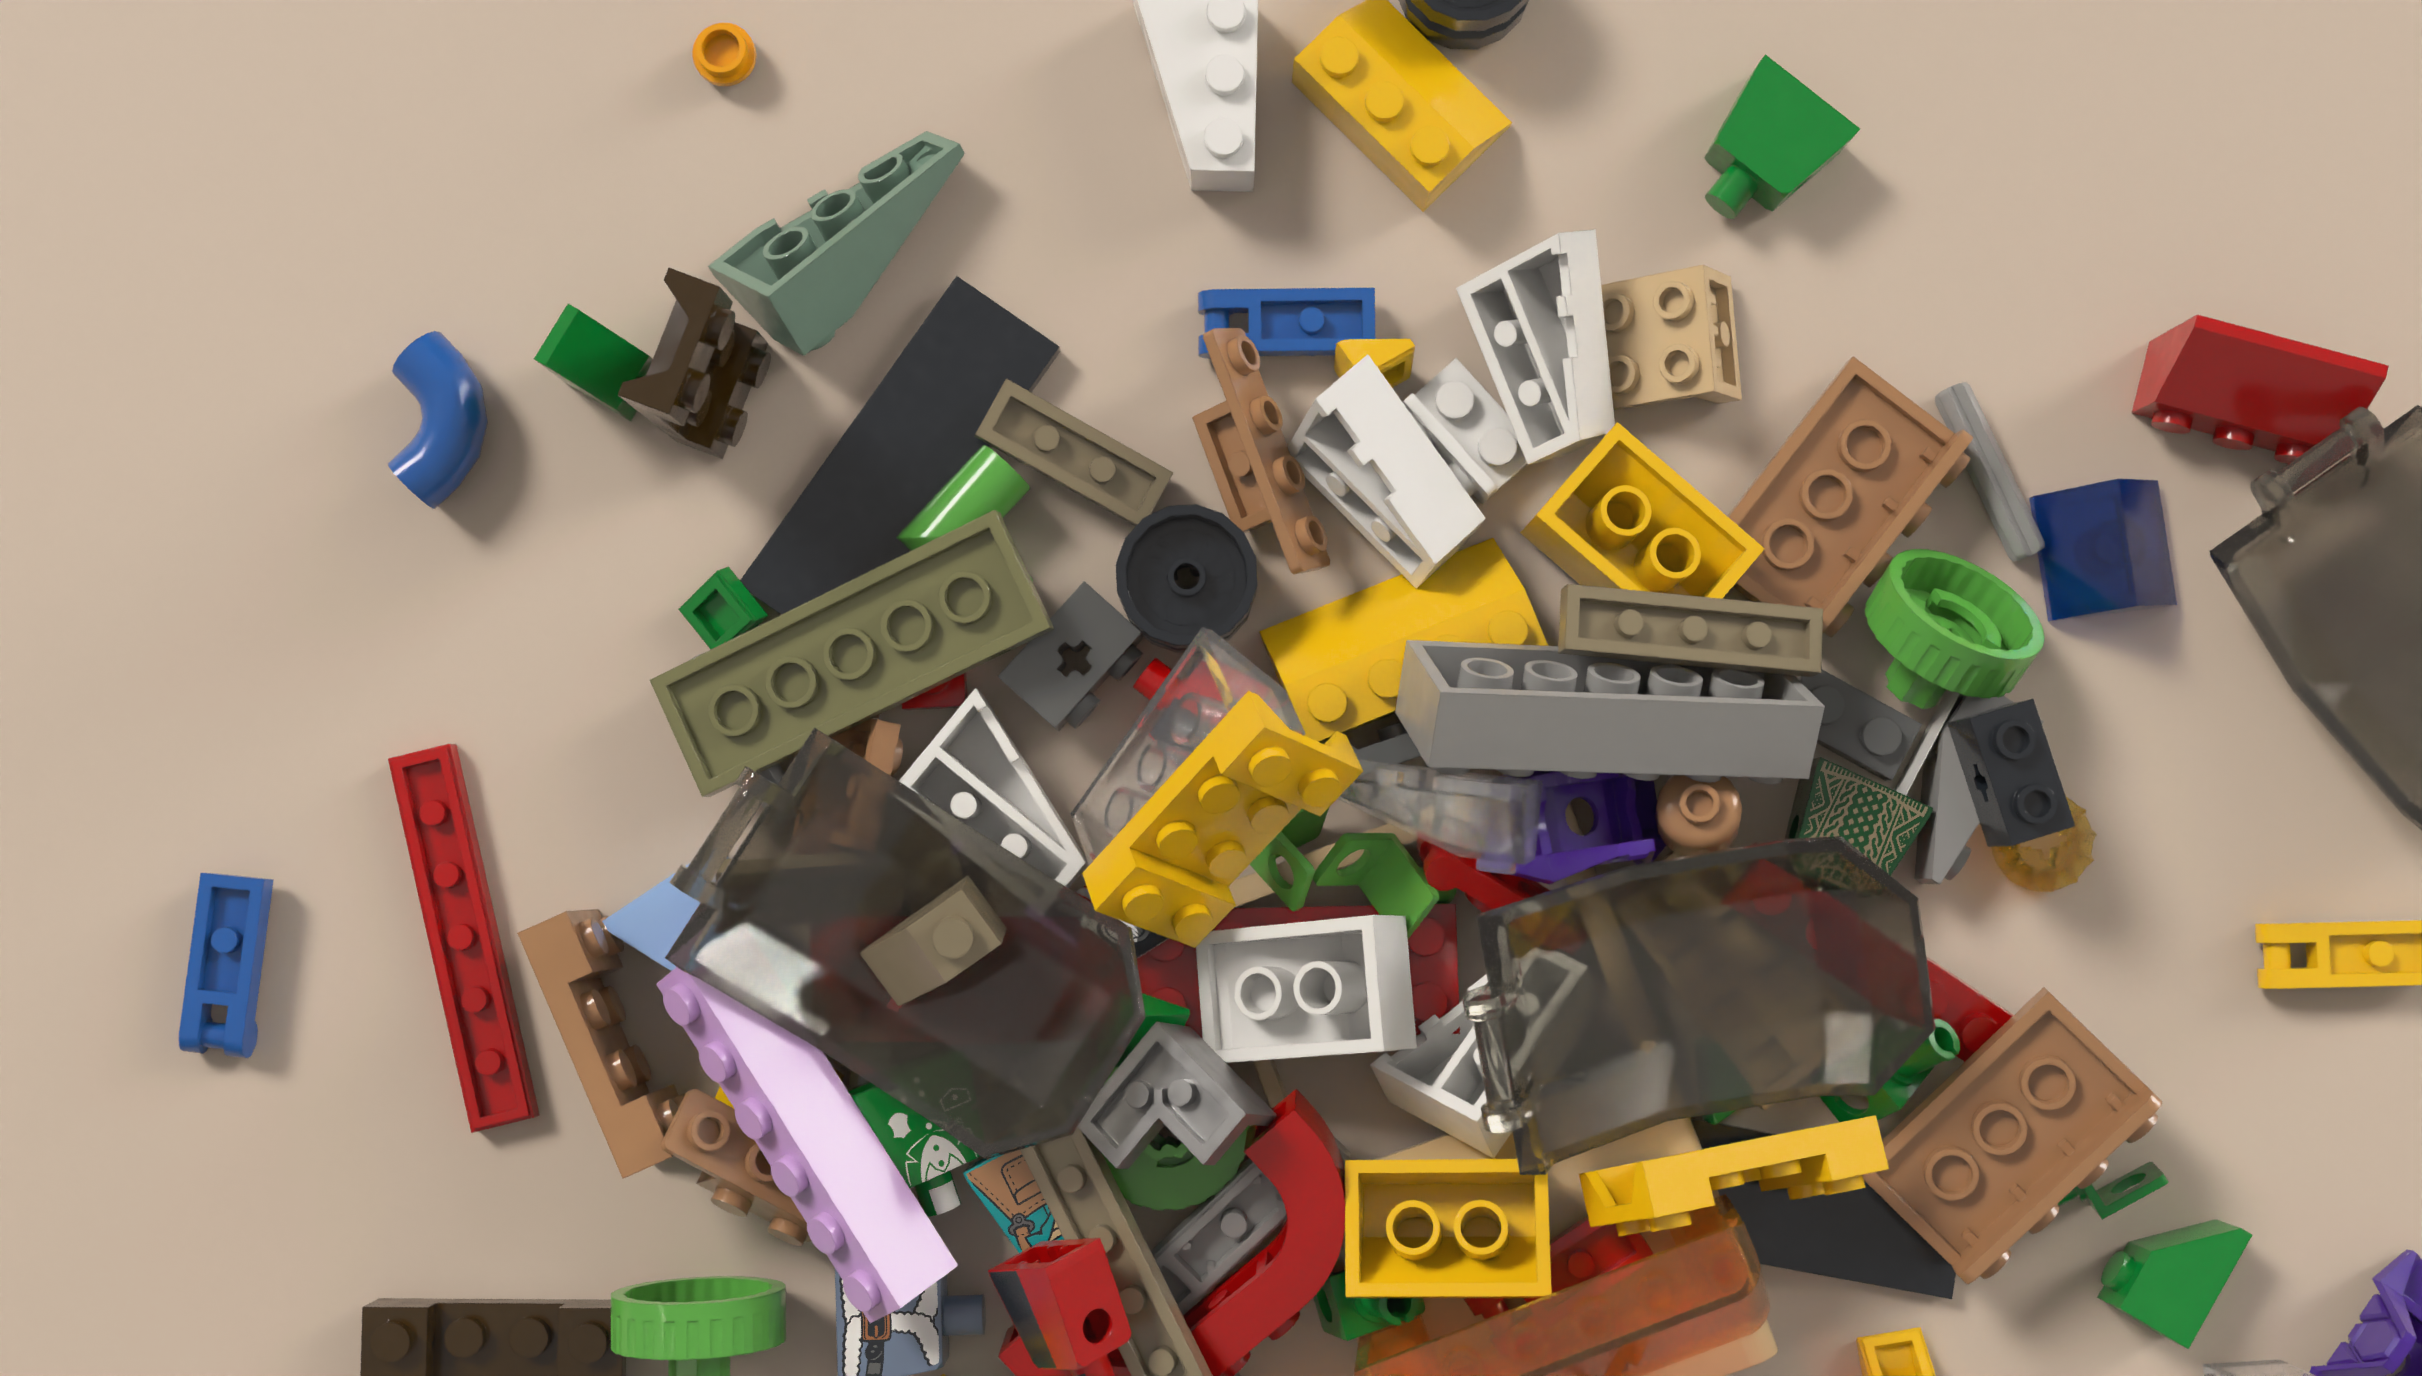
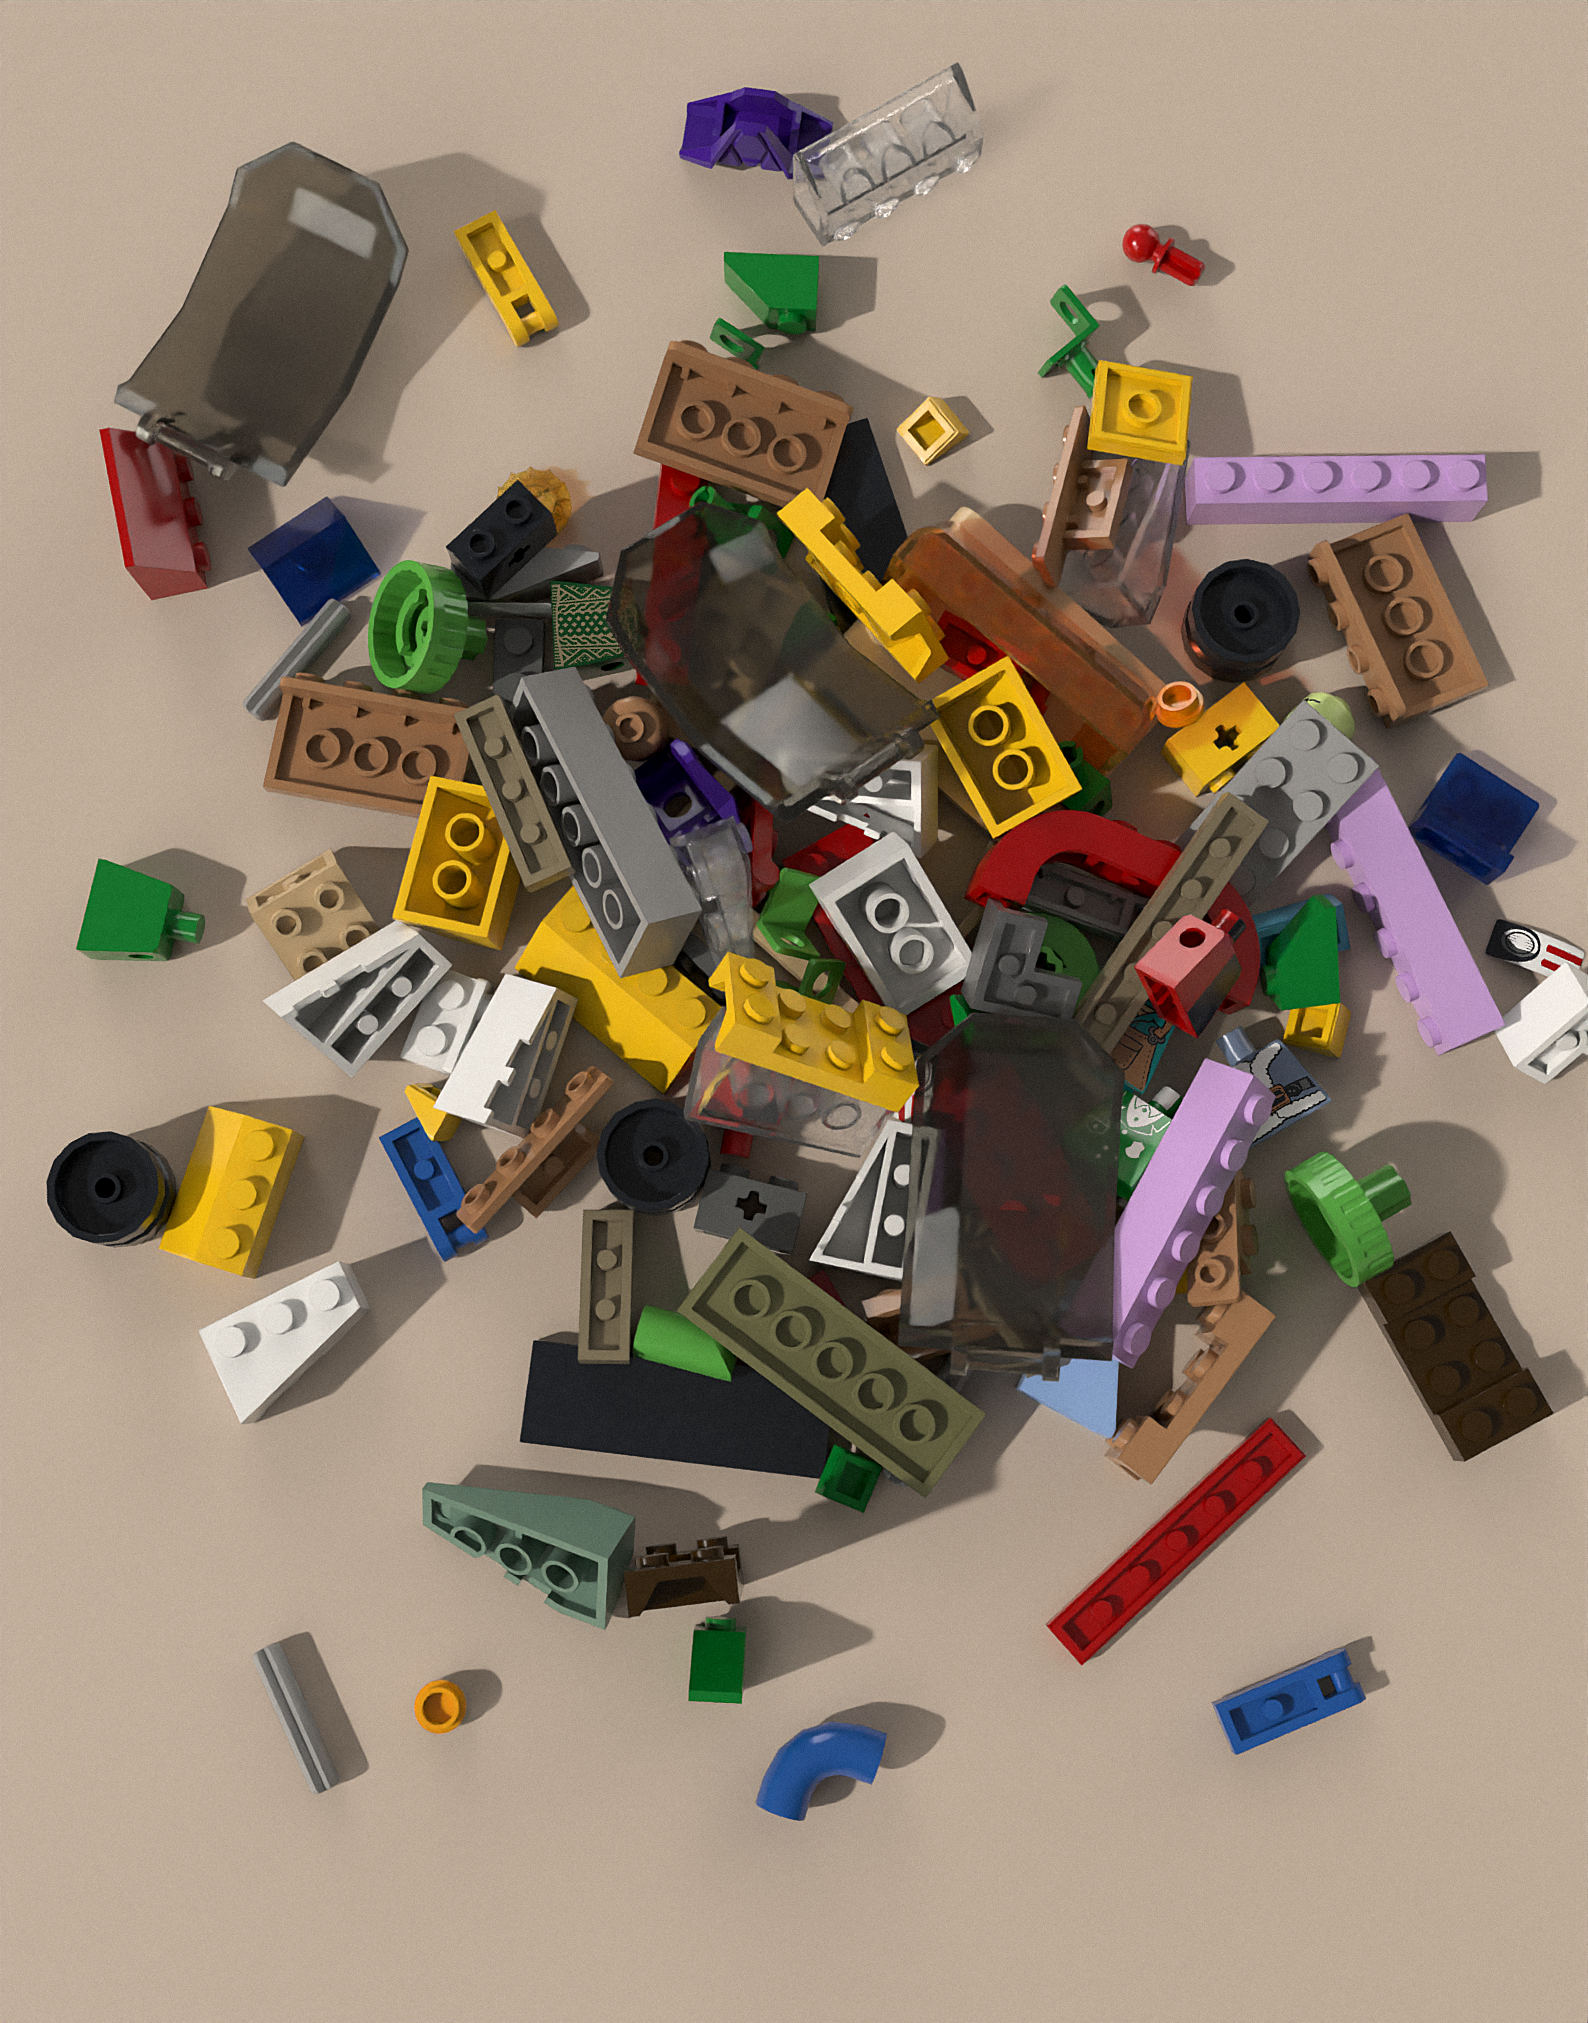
camera: 120 degrees left, 5 degrees down
(935, 943) = (999, 1187): dark tan slope -> none

